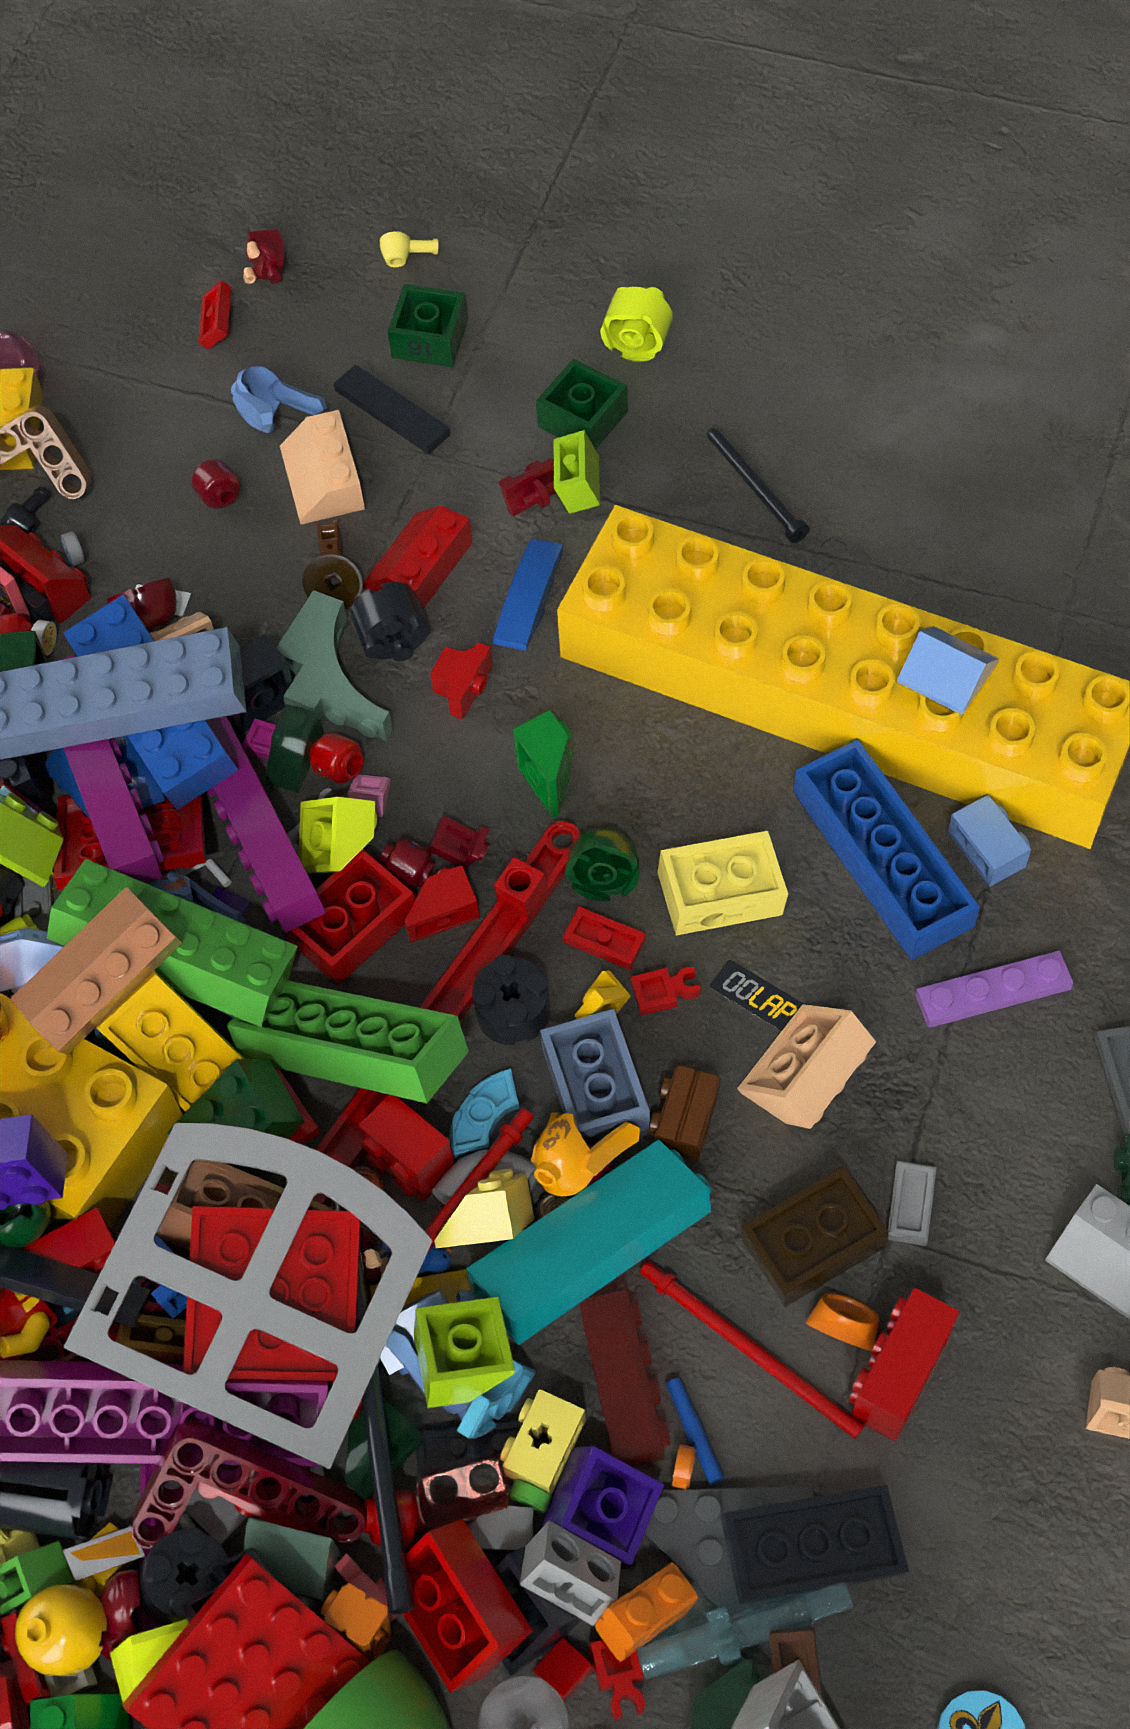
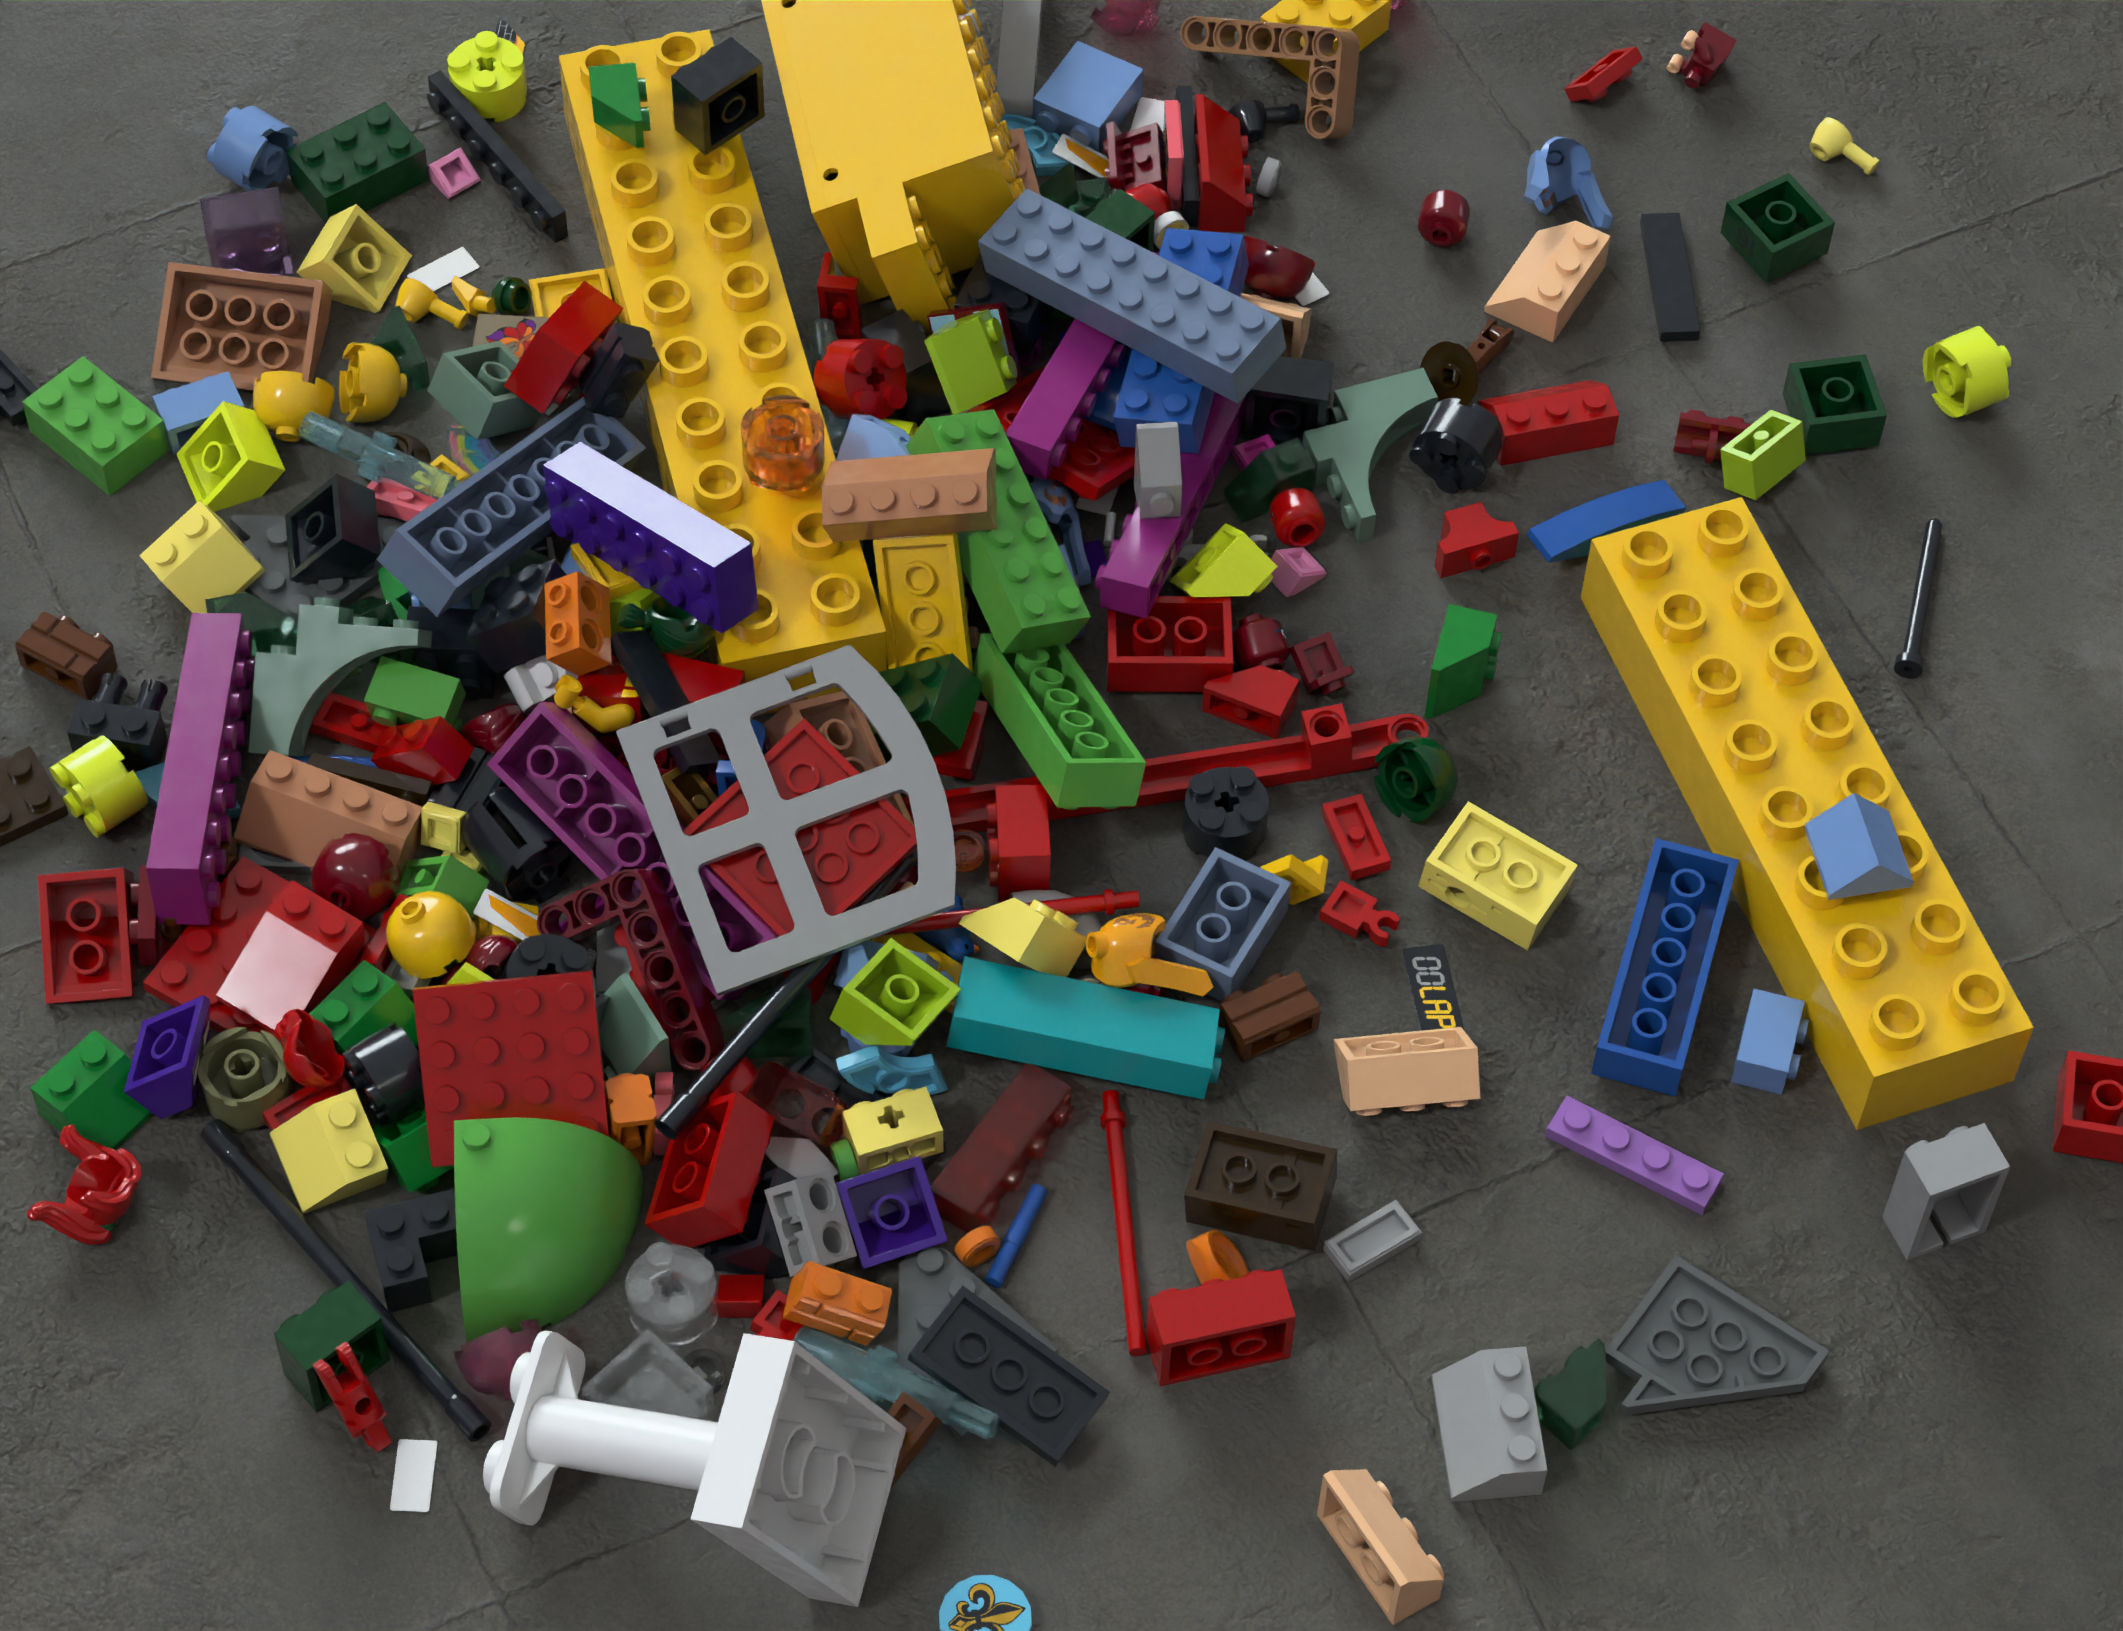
camera: 40 degrees right, 5 degrees down
(237, 804) = (1158, 470): none -> light grey slope
(480, 1113) = (1120, 874): medium azure tile -> none

